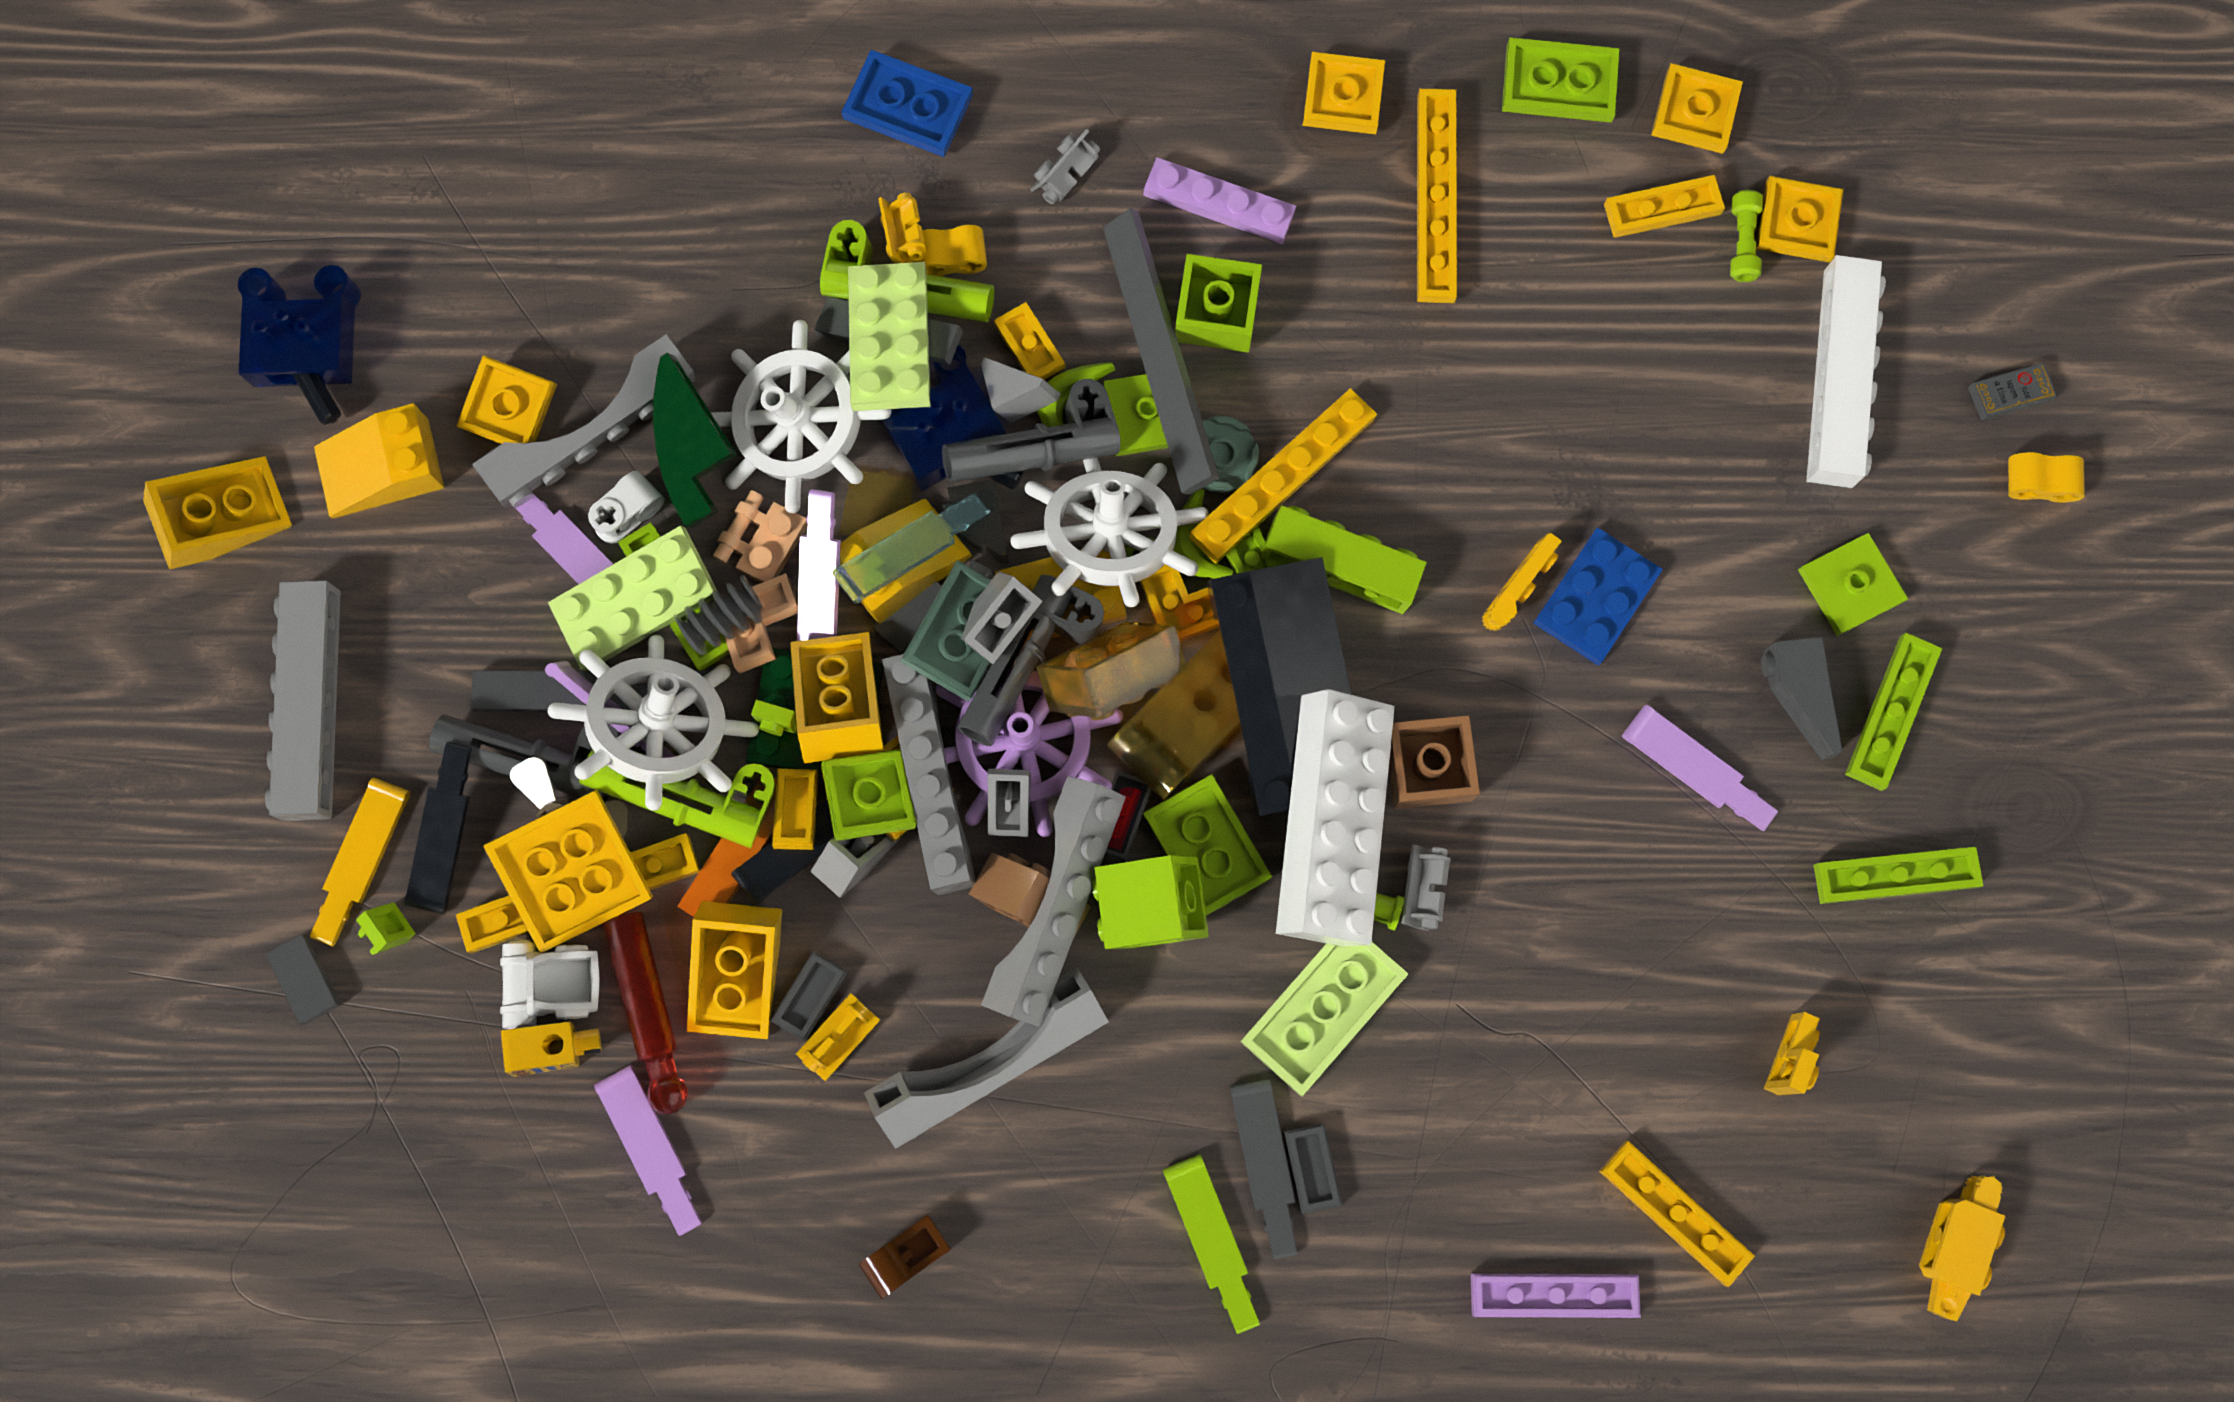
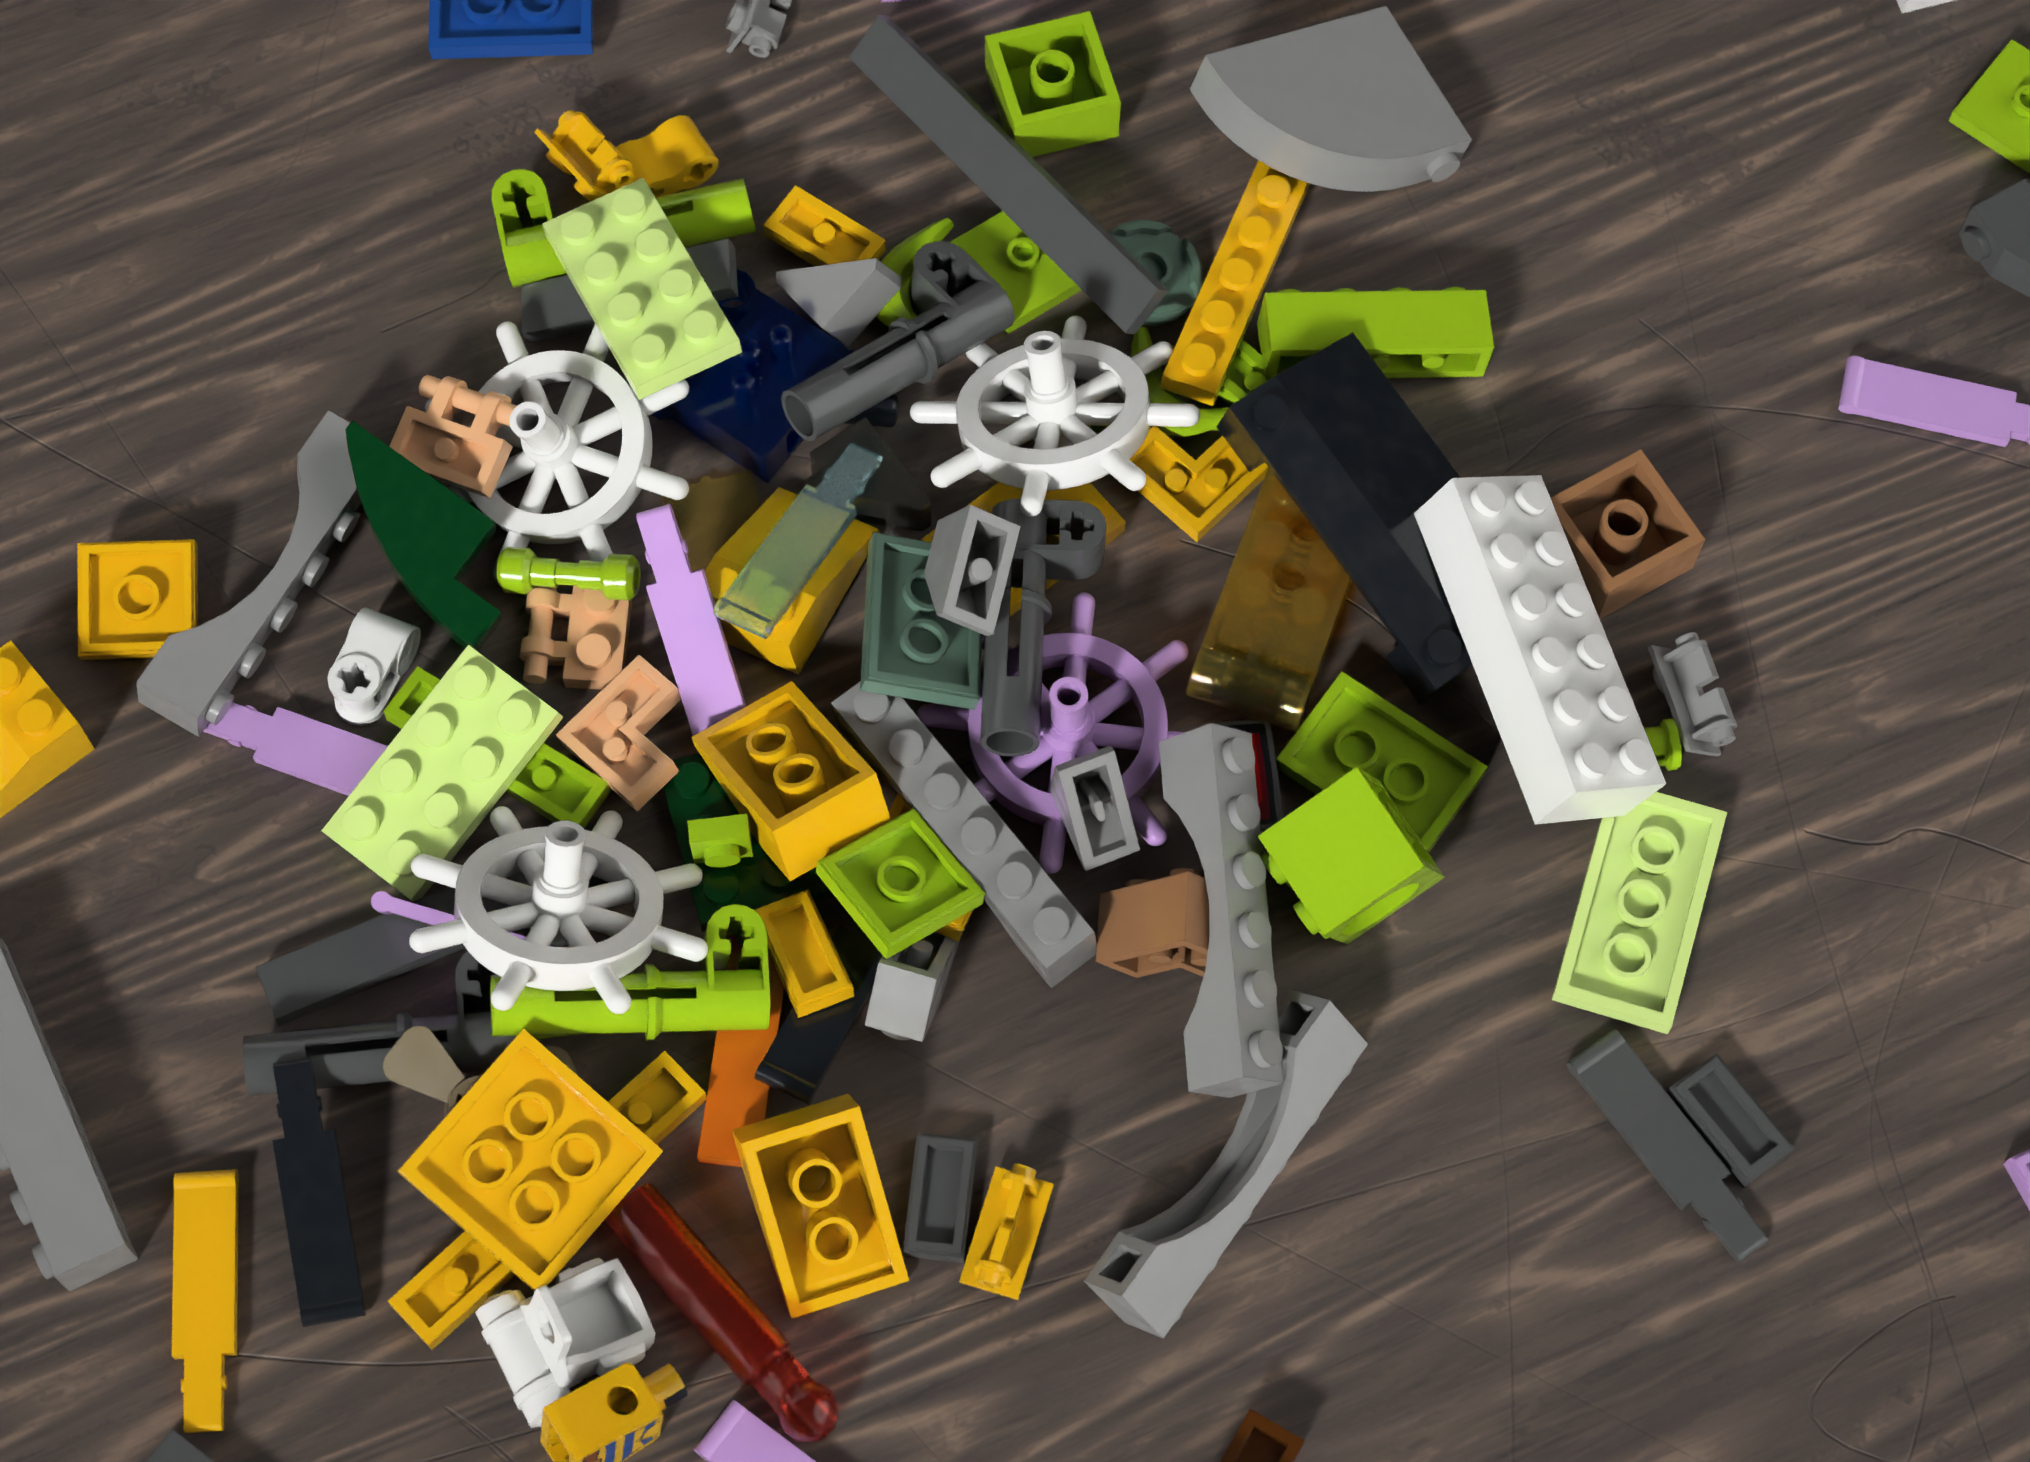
camera: 25 degrees left, 10 degrees down
(384, 927) = (291, 1364): lime tile -> none
(721, 616) = (581, 734): dark grey piece -> none
(726, 390) = (450, 451): none -> light nougat plate
(739, 488) = (522, 570): none -> lime piece
(902, 625) = (837, 651): dark grey tile -> none
(1112, 669) = (1151, 582): clear yellow brick -> none
(1212, 1238) = (1645, 1272): lime piece -> none
(1393, 394) = (1335, 105): none -> light grey brick
(1519, 584) = (1615, 275): yellow hinge -> none
(1597, 596) = (1719, 252): blue plate -> none

